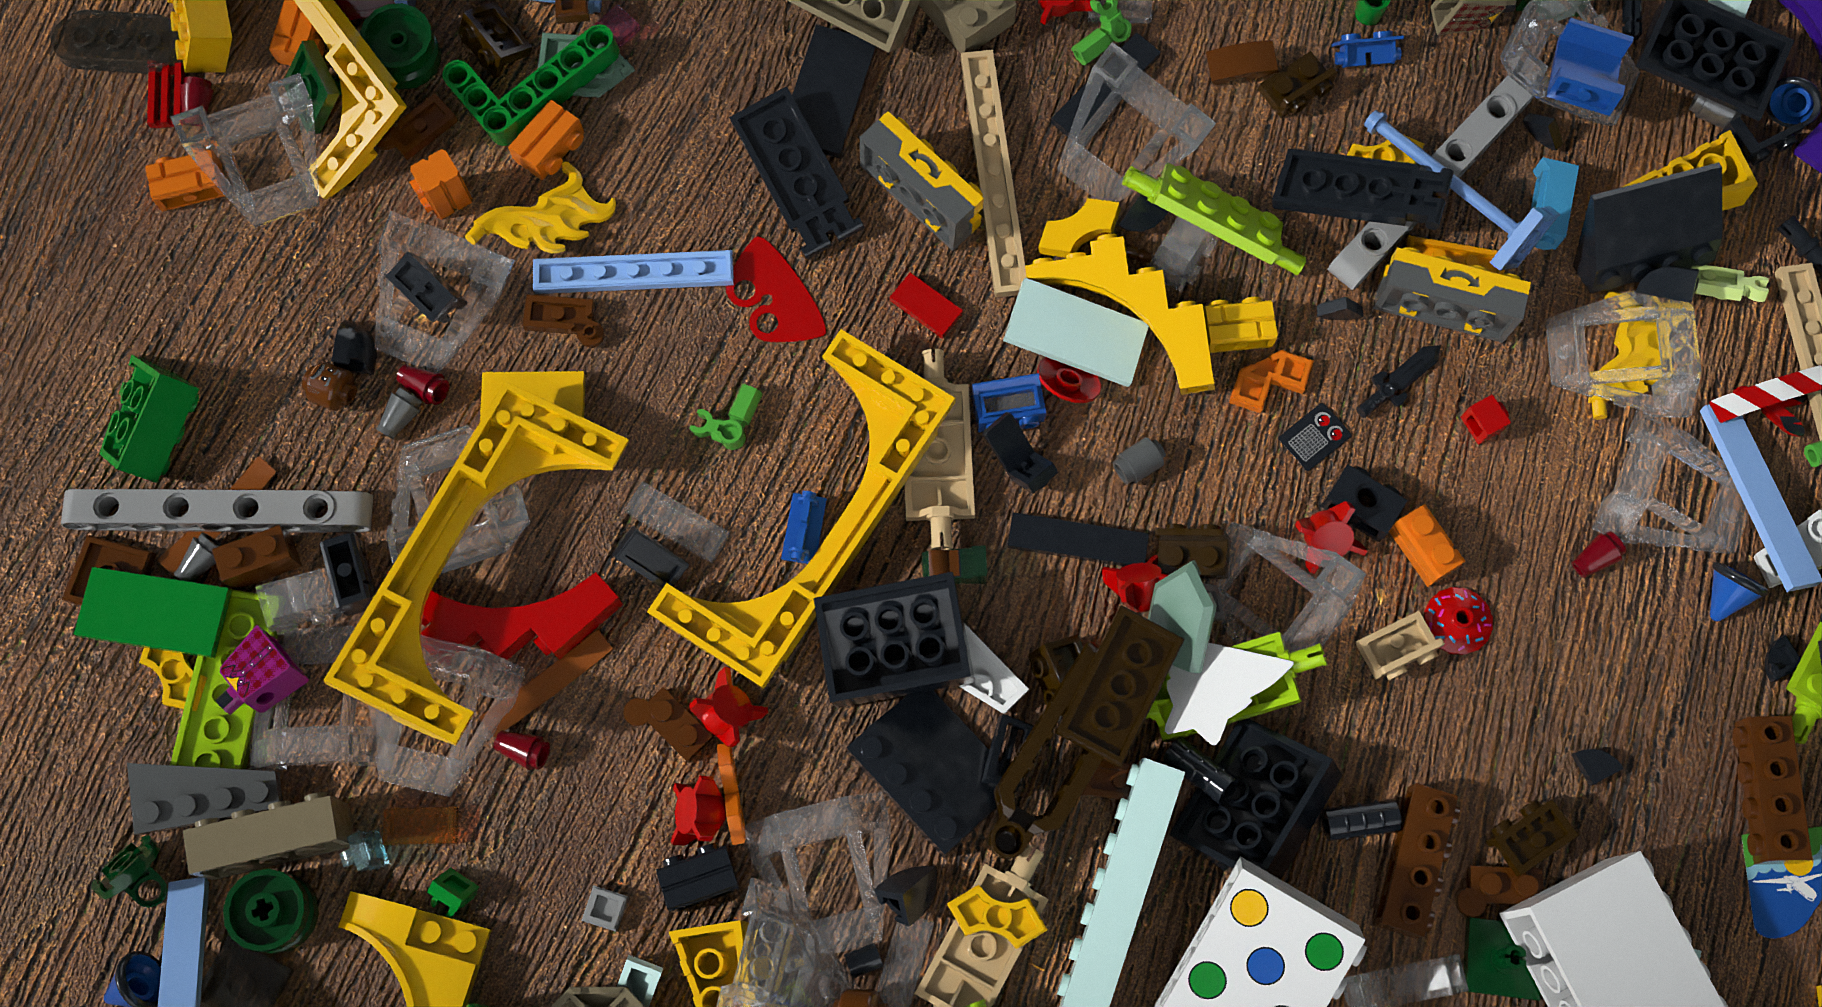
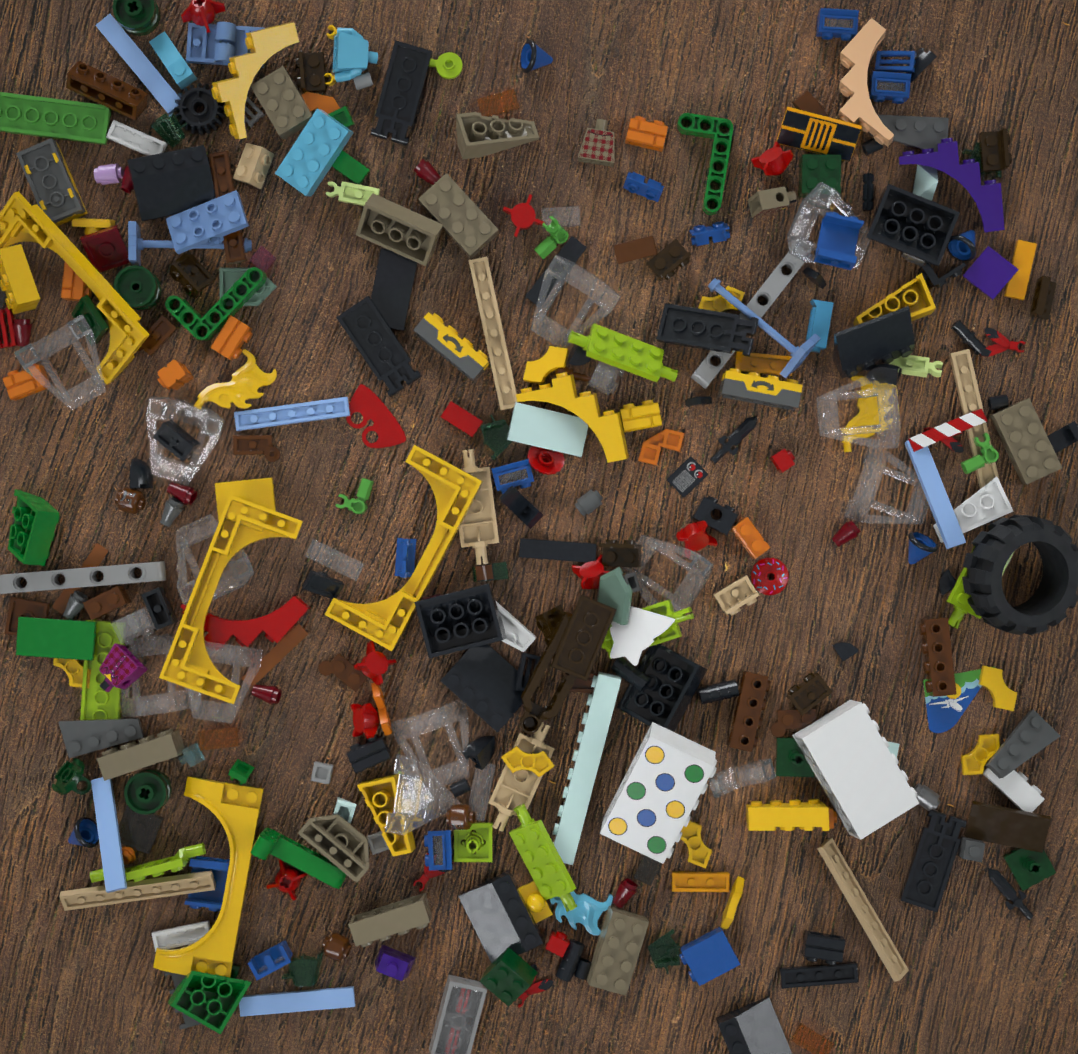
camera: 10 degrees left, 15 degrees up
(983, 336) = (496, 436): none -> clear green piece

